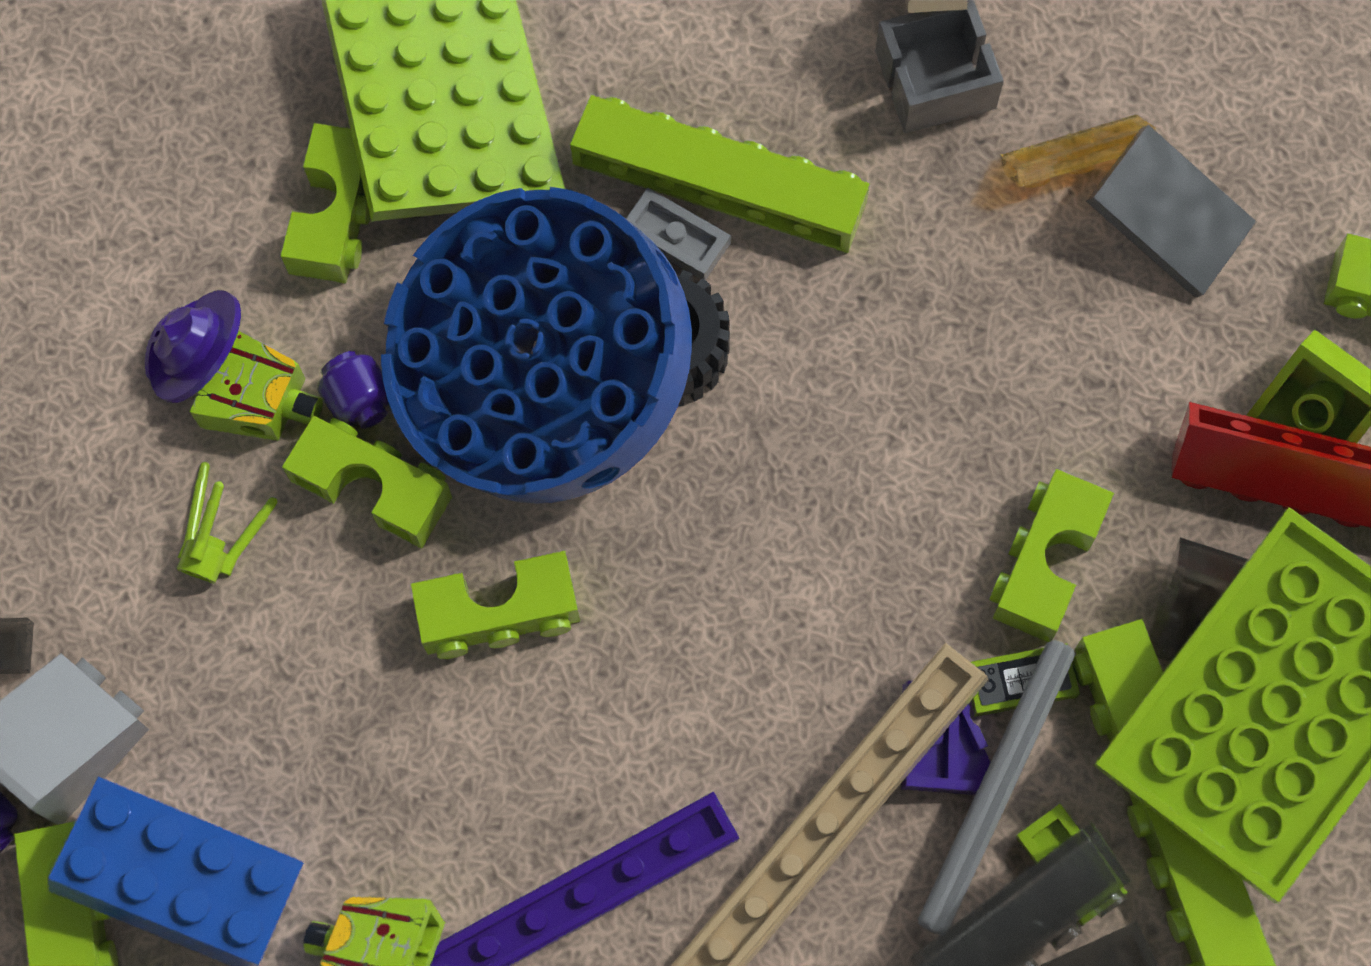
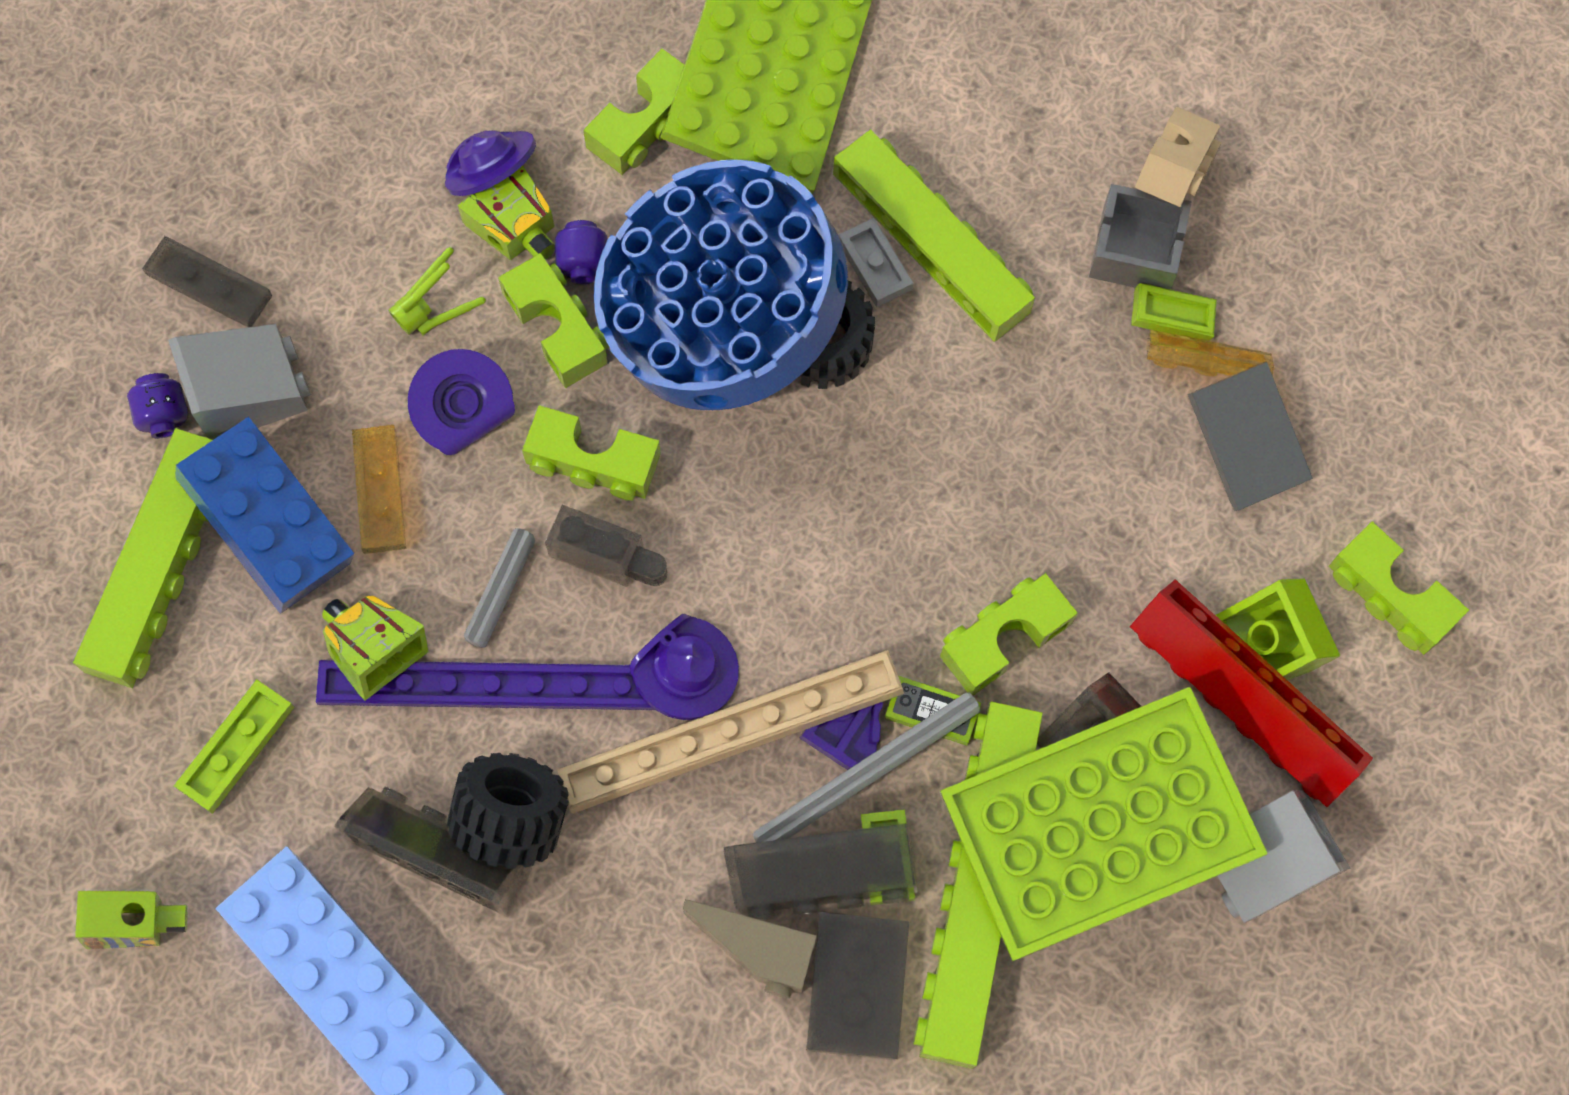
camera: 25 degrees right, 0 degrees up
(283, 773) = (378, 489): none -> clear yellow plate
(316, 625) = (459, 399): none -> dark purple hat
(481, 808) = (499, 588): none -> light grey axle
(573, 702) = (603, 549): none -> clear smoke brick
(739, 784) = (686, 669): none -> dark purple hat
(1014, 123) = (1173, 312): none -> lime tile

